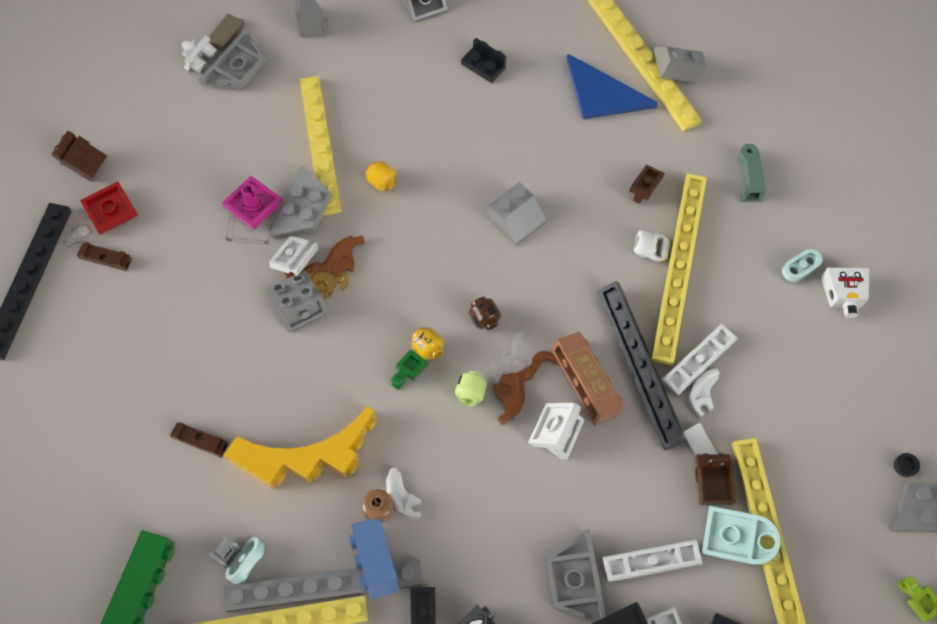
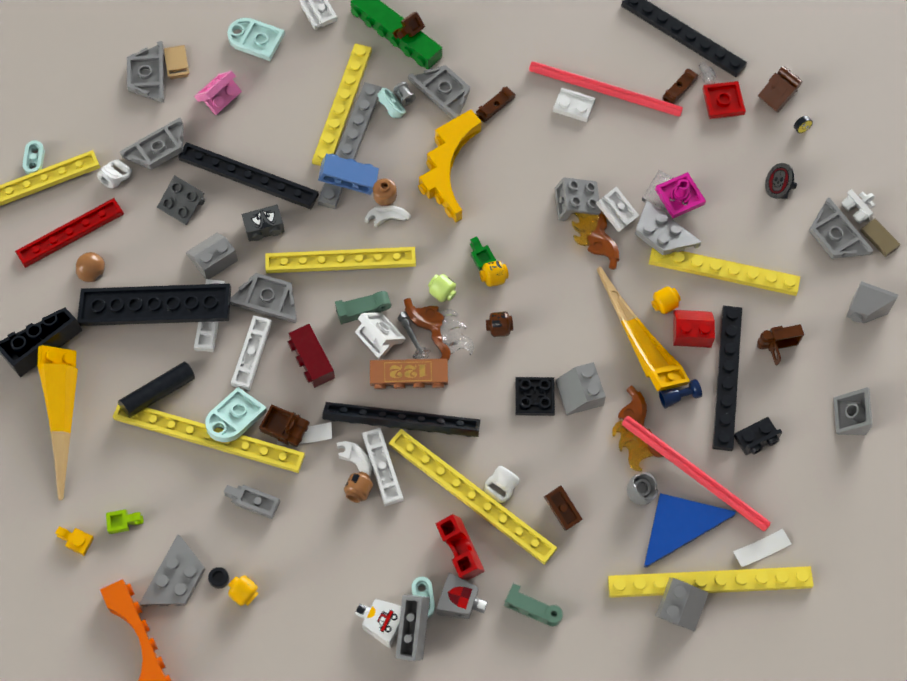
camera: 115 degrees right, 0 degrees up
(115, 127) = (803, 124): none -> tile
(125, 577) = (411, 25): none -> reddish brown plate
(133, 334) = (605, 88): none -> coral axle
(168, 354) = (574, 104): none -> white plate
(197, 122) = (780, 181): none -> shield
(200, 507) = (443, 89): none -> light grey wing
(379, 70) = (780, 338): none -> reddish brown piece
(398, 143) = (693, 328): none -> red slope
(435, 104) = (727, 378): none -> black plate
(453, 159) = (654, 358): none -> yellow plate
(483, 137) = (672, 396): none -> dark blue piece
(489, 521) = (340, 260): none -> light yellow plate
(534, 464) = (352, 309): none -> sand green leg
(536, 156) = (637, 448): none -> piece
(543, 255) = (534, 396): none -> black tile
(549, 92) = (696, 473): none -> coral axle
(556, 378) = (420, 352): none -> piece
(585, 30) = (762, 548): none -> white sticker
(590, 127) = (642, 488): none -> light grey hair
(621, 490) = (310, 356): none -> dark red brick
(733, 255) = (465, 556): none -> red arch
(736, 369) = (358, 487): none -> medium nougat head
(784, 234) = (459, 599): none -> light grey torso
(812, 470) = (253, 500): none -> light grey hinge
(843, 252) = (412, 627): none -> light grey brick
(907, 430) = (242, 590): none -> yellow head

